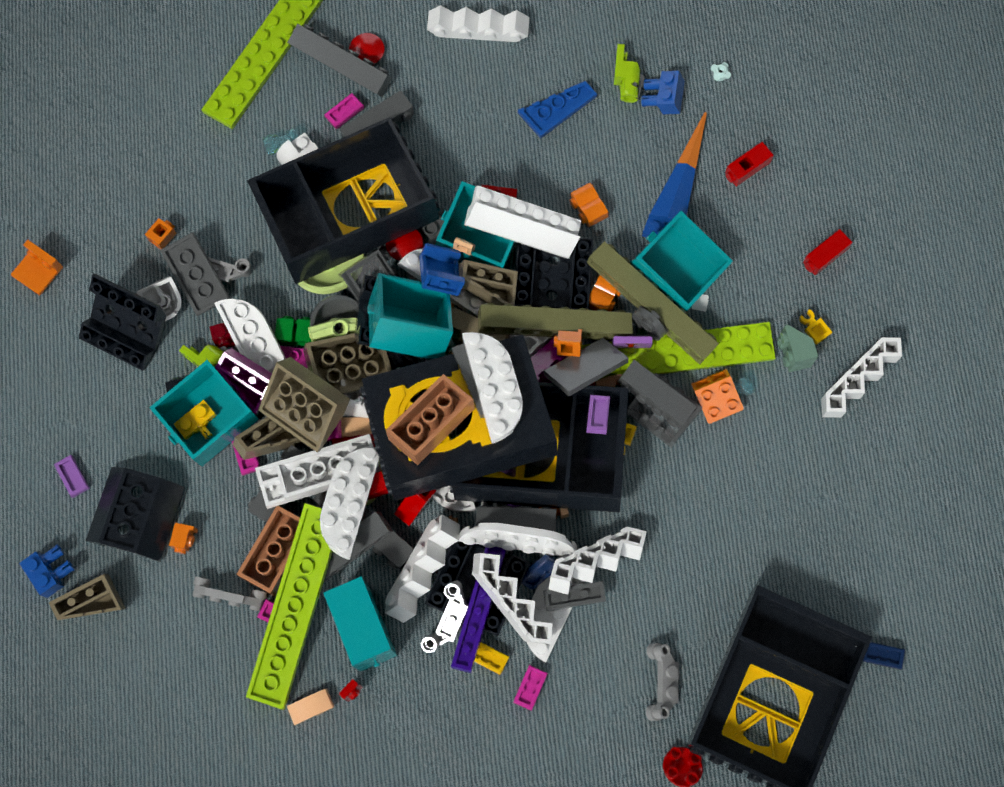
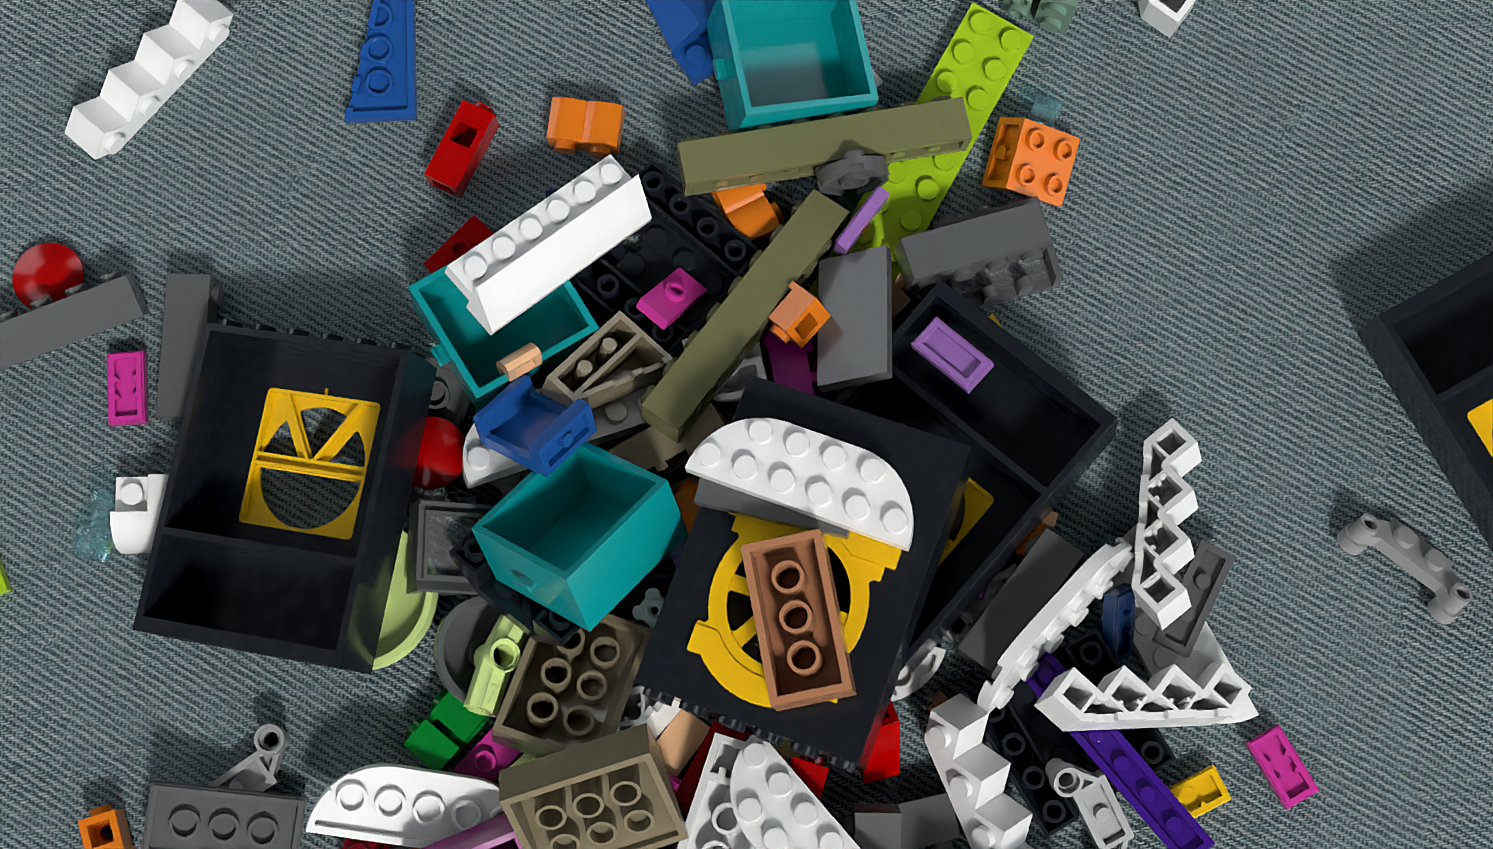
camera: 55 degrees left, 5 degrees up
(539, 289) = (671, 298): none -> dark pink plate
(541, 164) = (462, 148): none -> red brick

